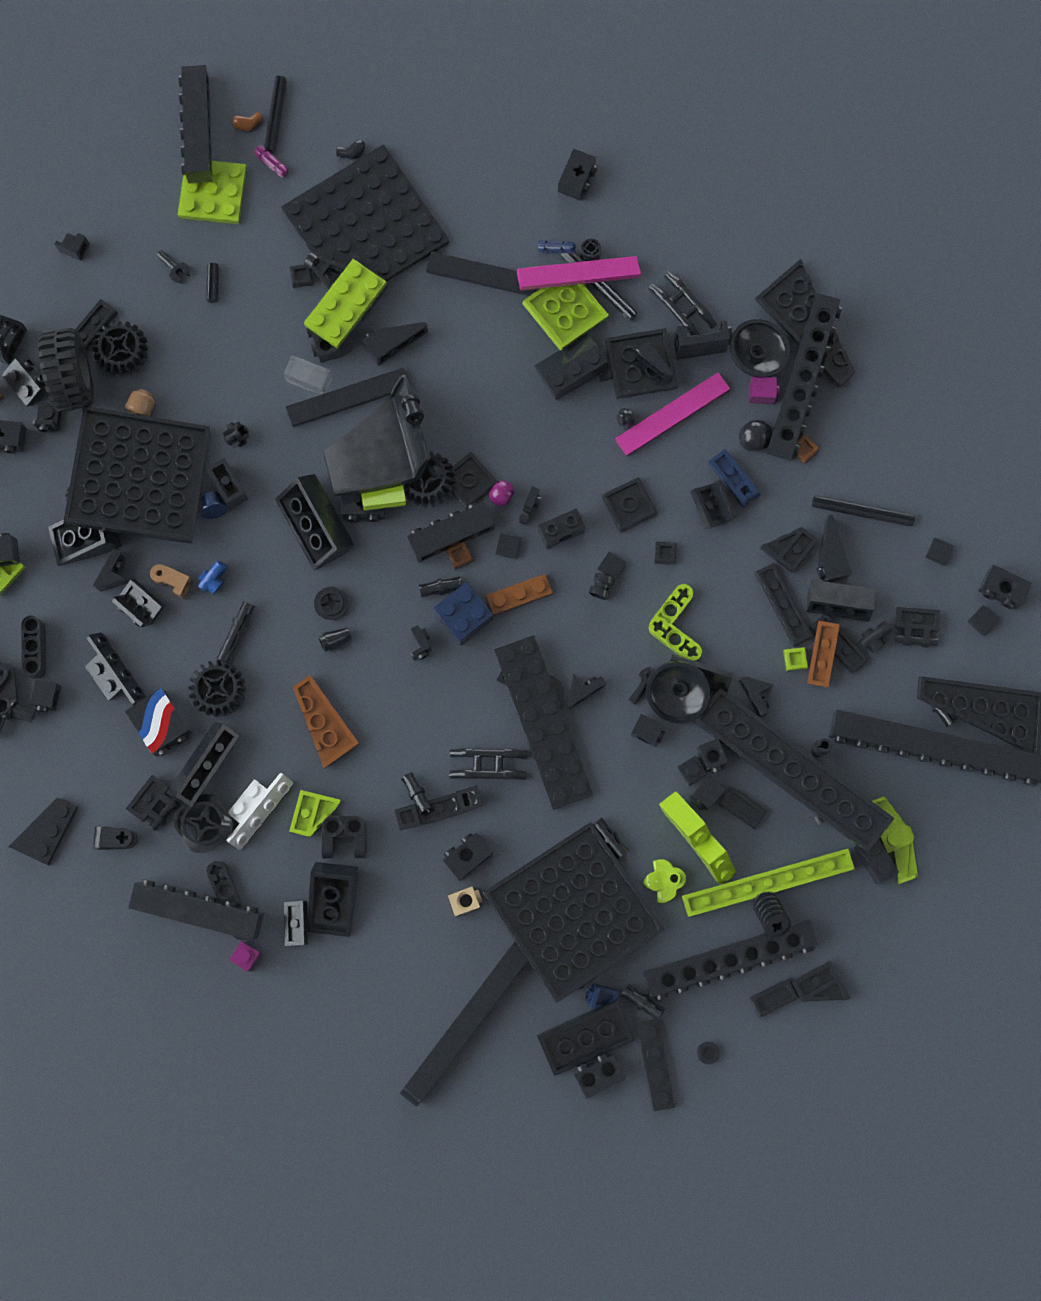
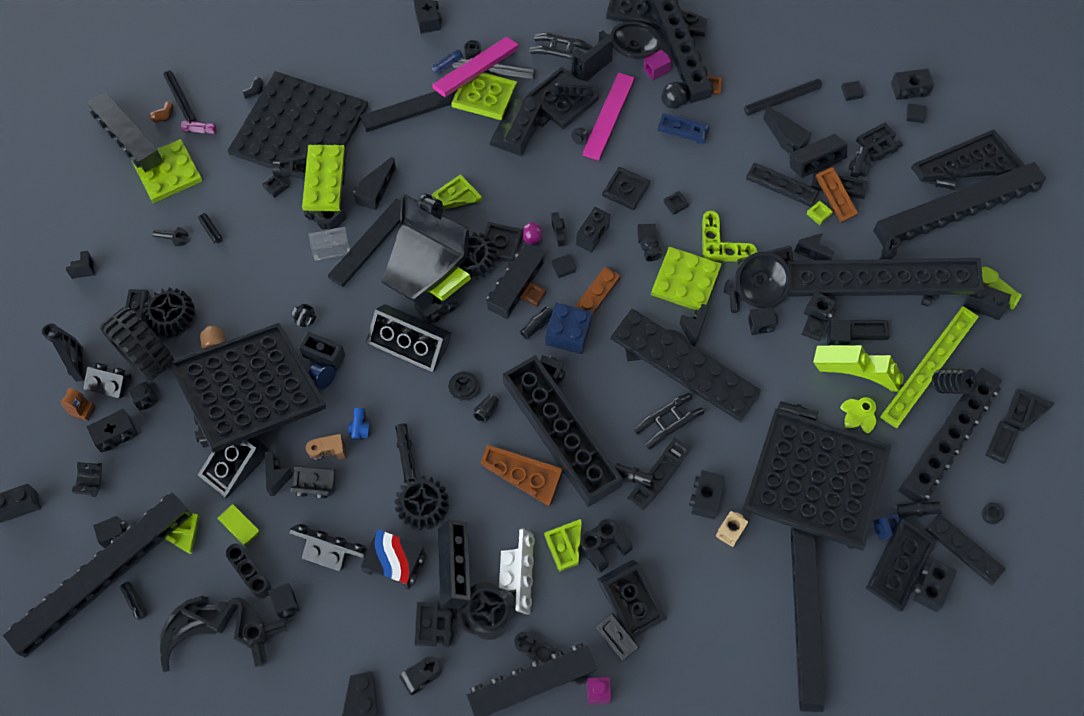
camera: 35 degrees left, 15 degrees down
(53, 599) = (239, 525): none -> lime tile
(382, 707) = (562, 431): none -> black brick
(462, 401) = (457, 193): none -> lime wing
(612, 638) = (685, 279): none -> lime plate
(713, 504) = (684, 150): black bracket -> none
(790, 548) = (757, 146): black wing -> none

